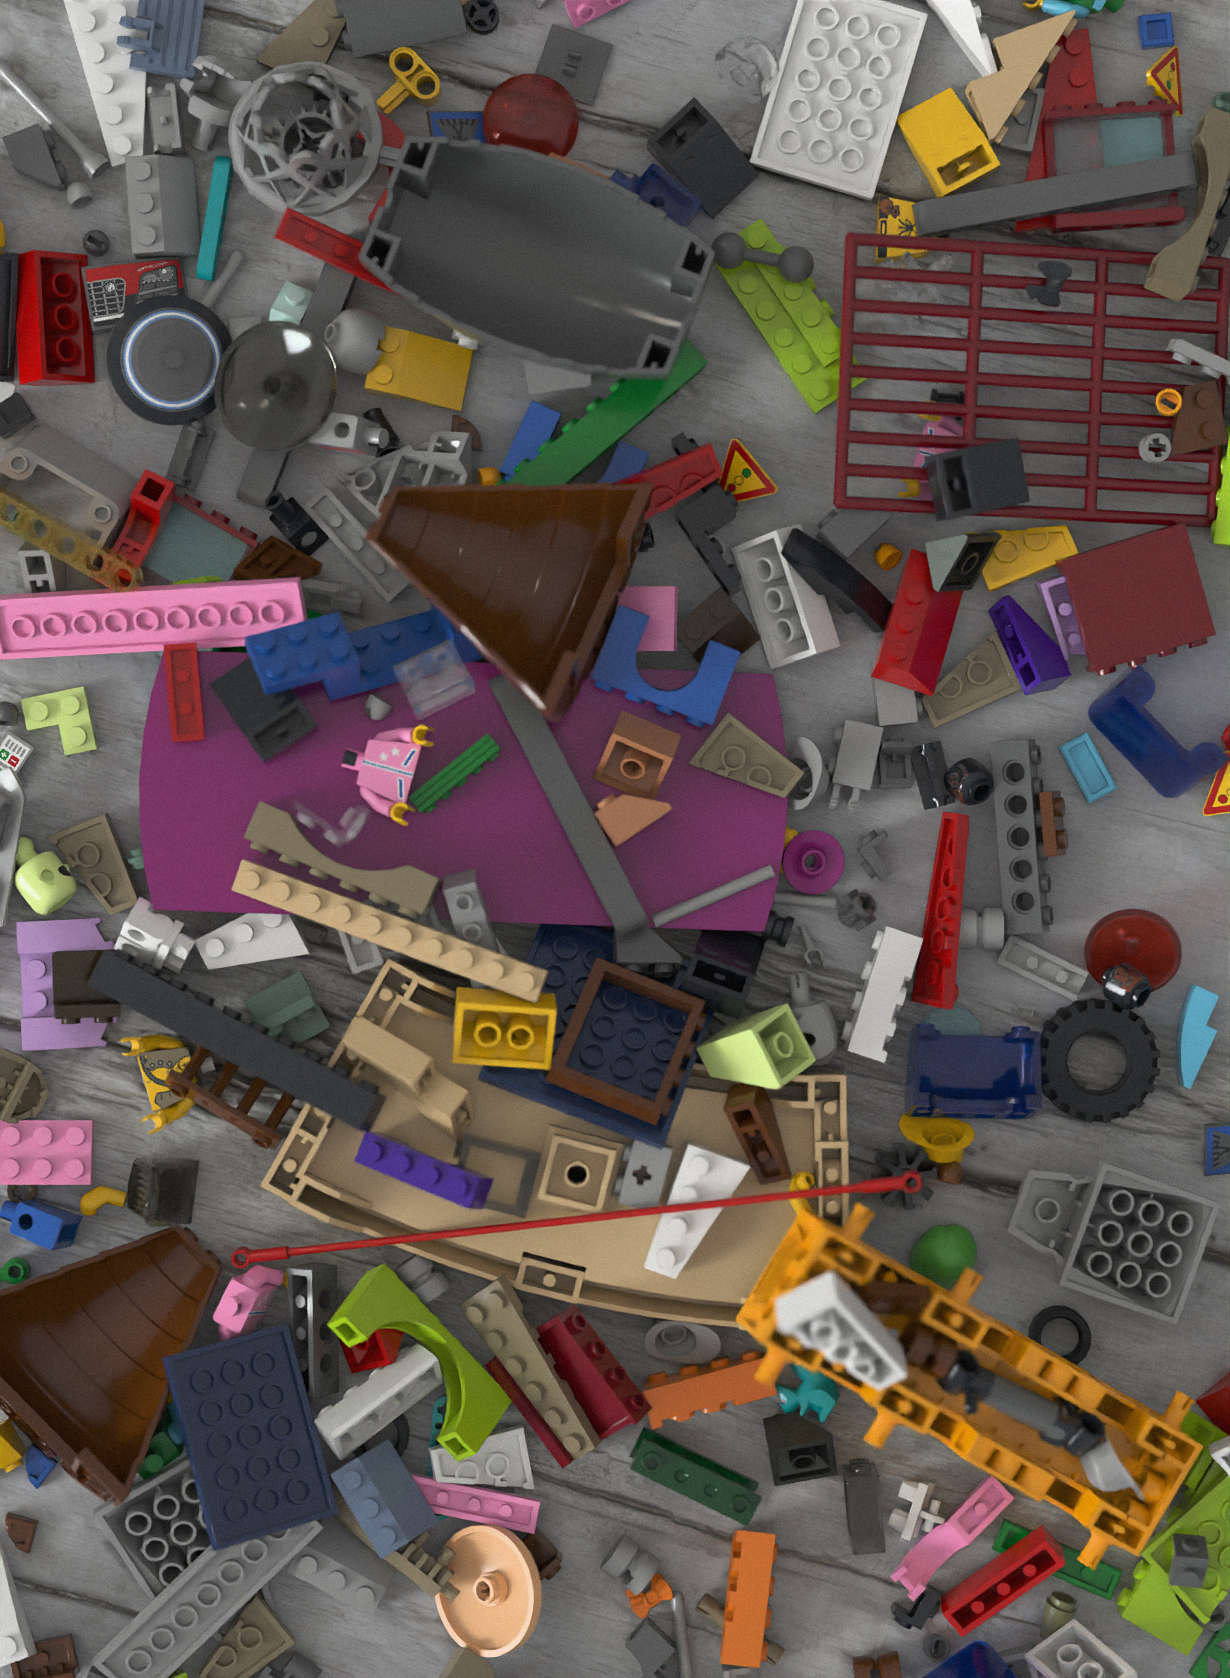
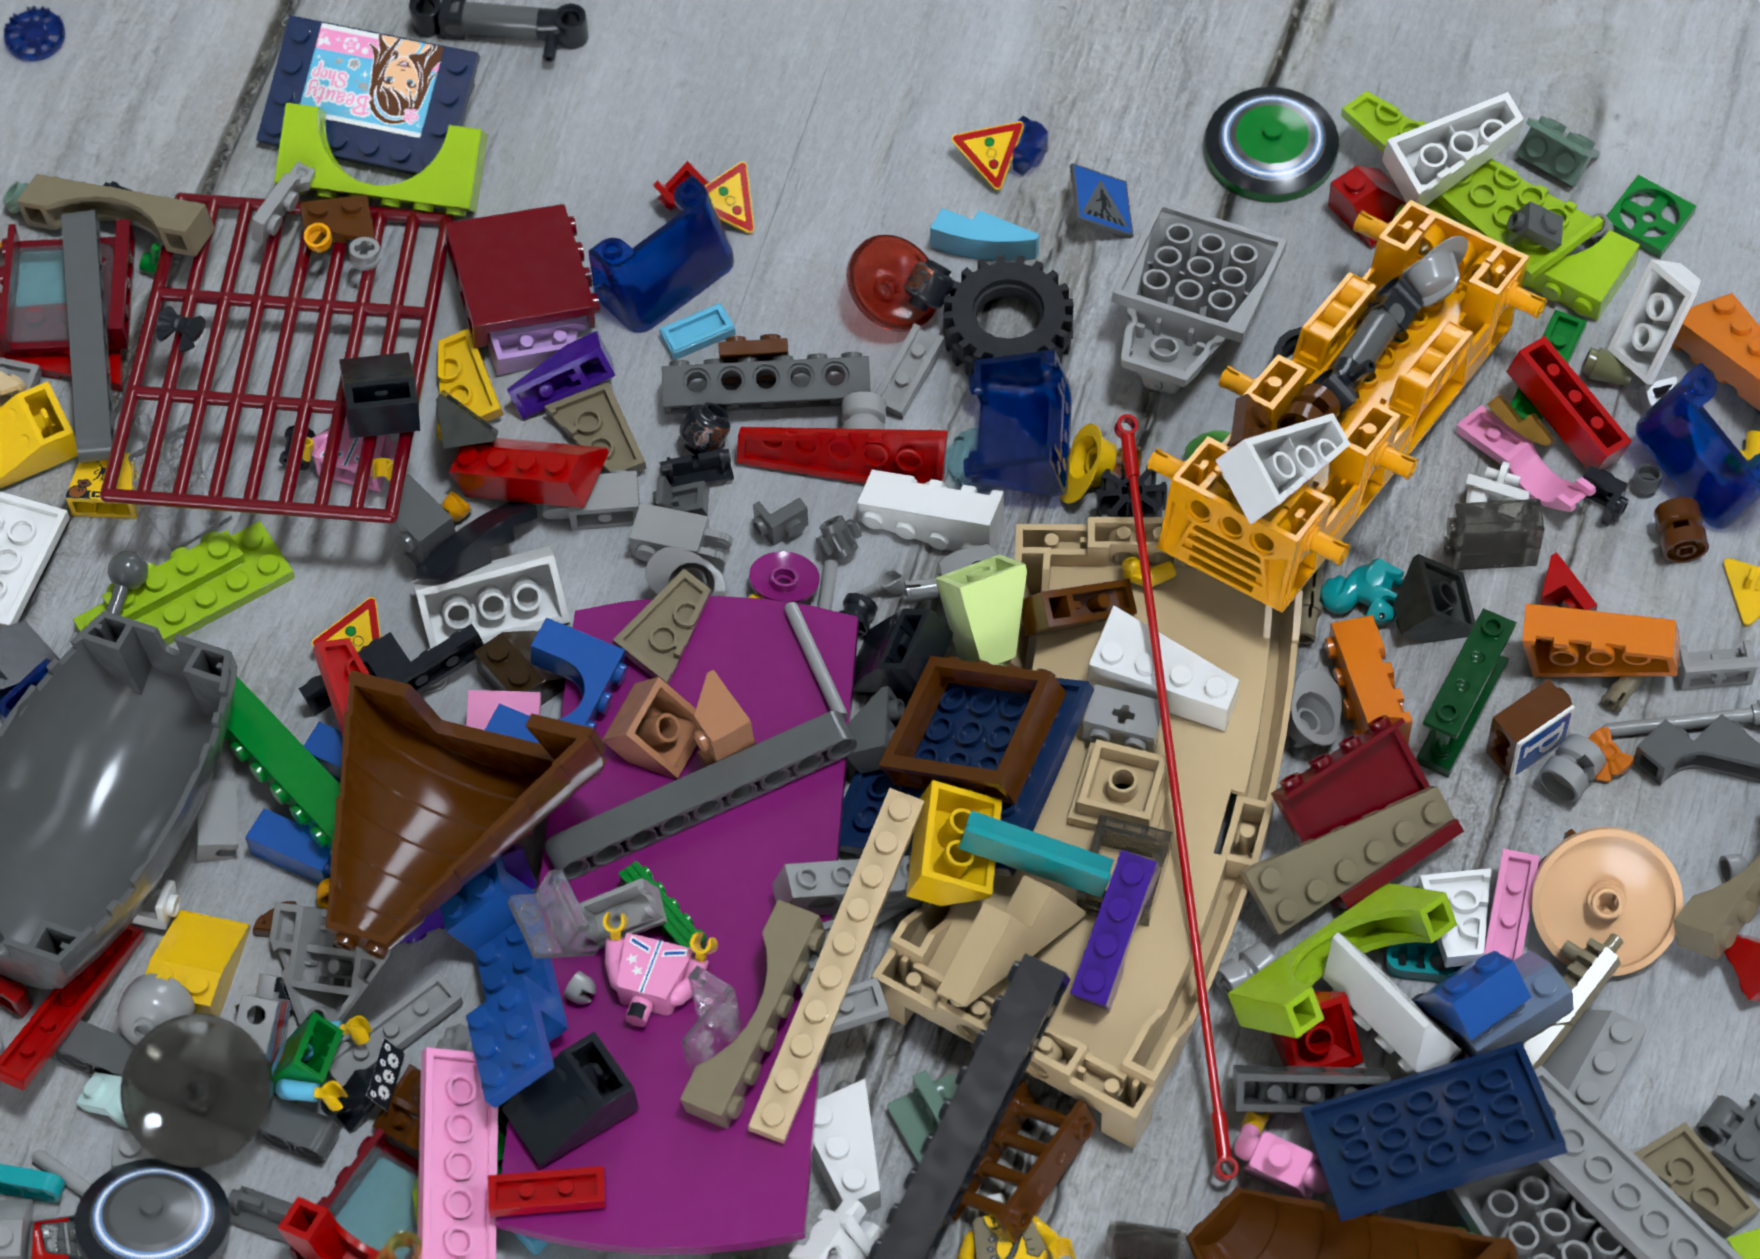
camera: 85 degrees left, 30 degrees down
(309, 544) = (385, 1074): none -> black sticker
(313, 475) = (307, 1056): none -> torso
(380, 1473) = (1476, 995): none -> blue slope
(447, 749) = (637, 899): none -> light grey hinge
(489, 1101) = (1036, 854): none -> teal panel
(662, 1531) = (1530, 728): none -> reddish brown piece
(820, 1563) = (1564, 587): none -> red slope
(985, 1539) = (1530, 427): none -> pearl gold slope
(1154, 242) = (150, 260): none -> green hand

